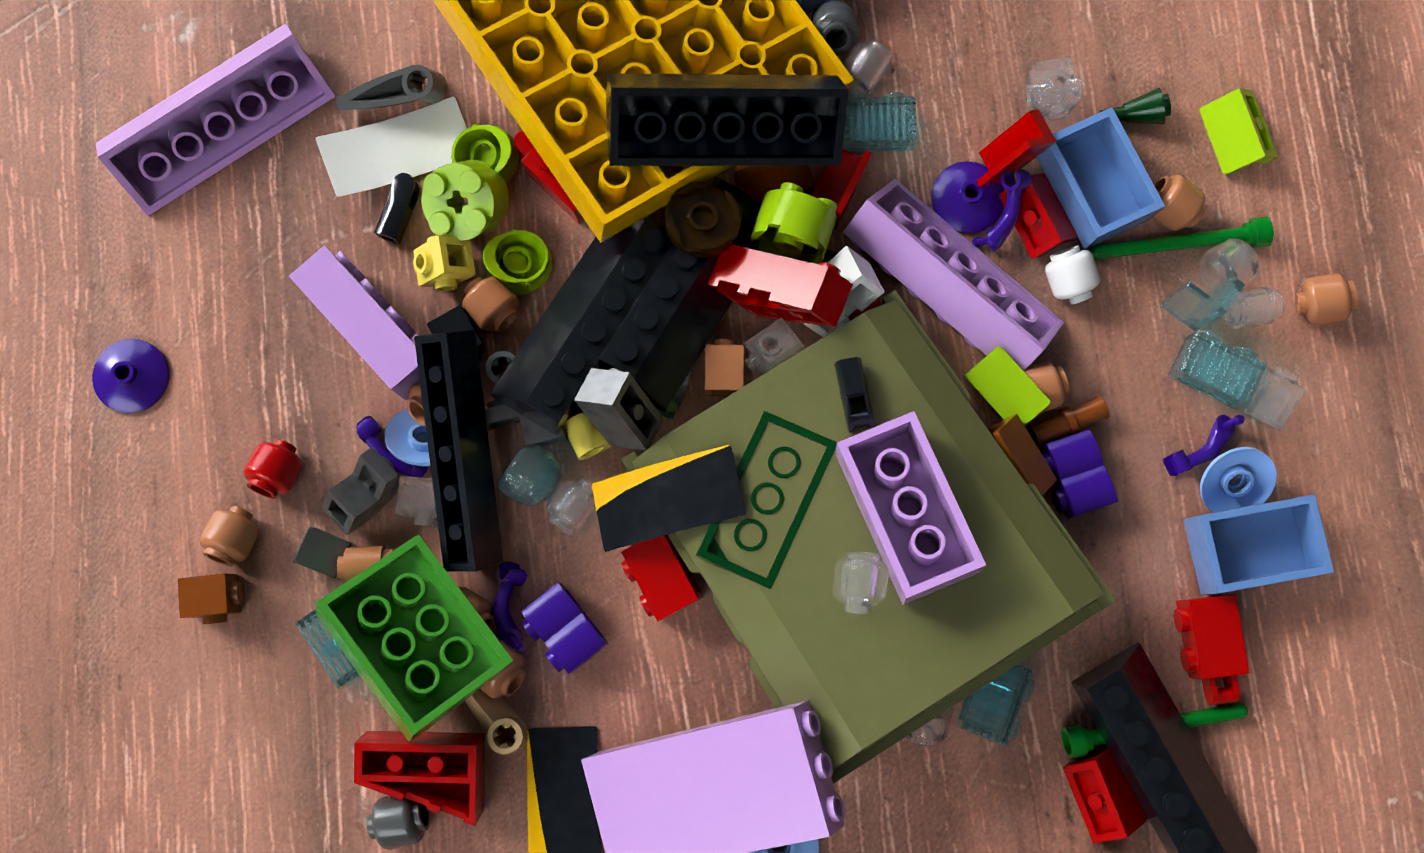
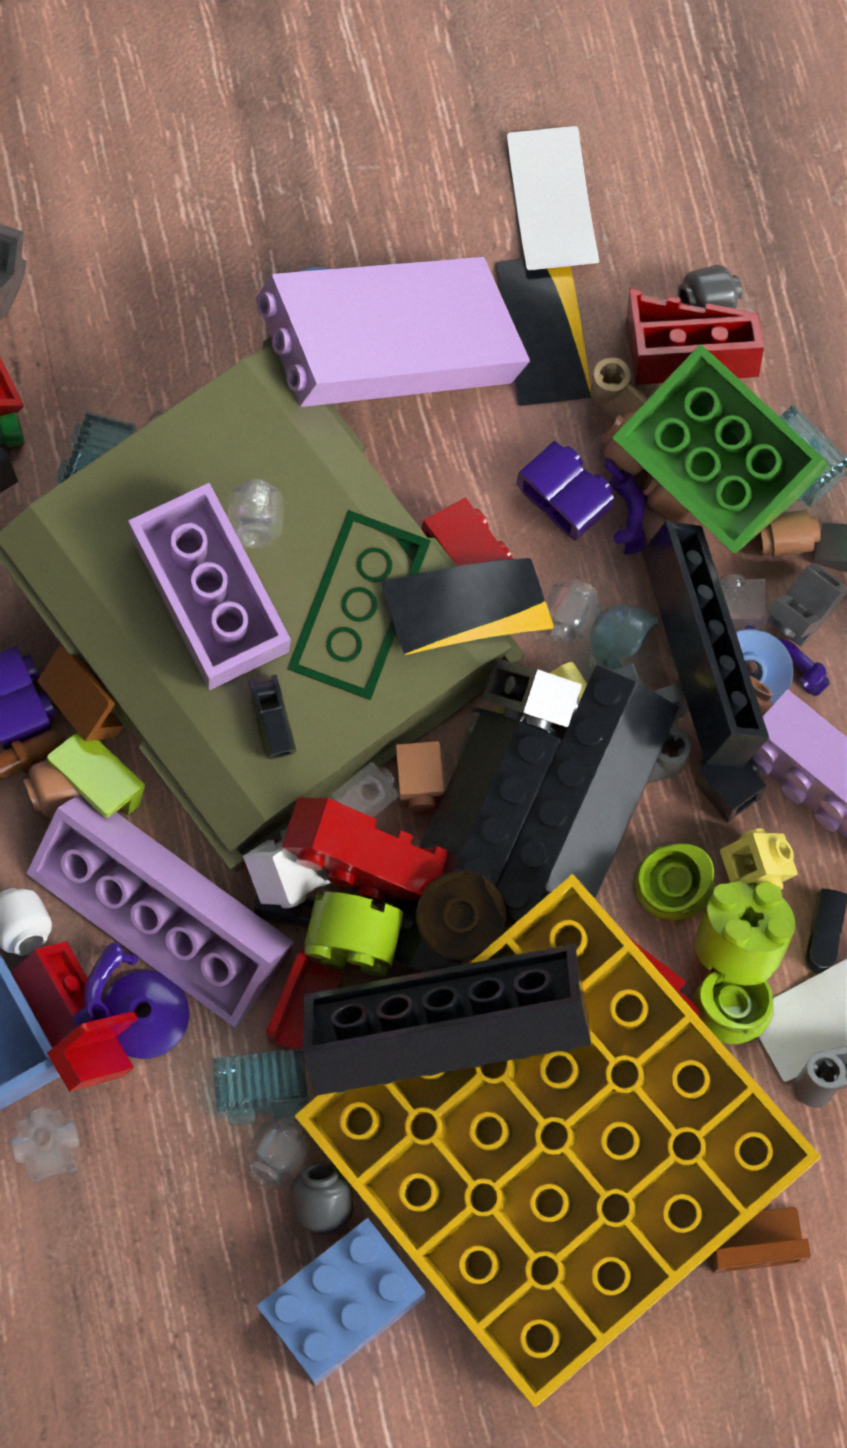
camera: 175 degrees right, 10 degrees down
(490, 304) = (698, 820): nougat head -> none

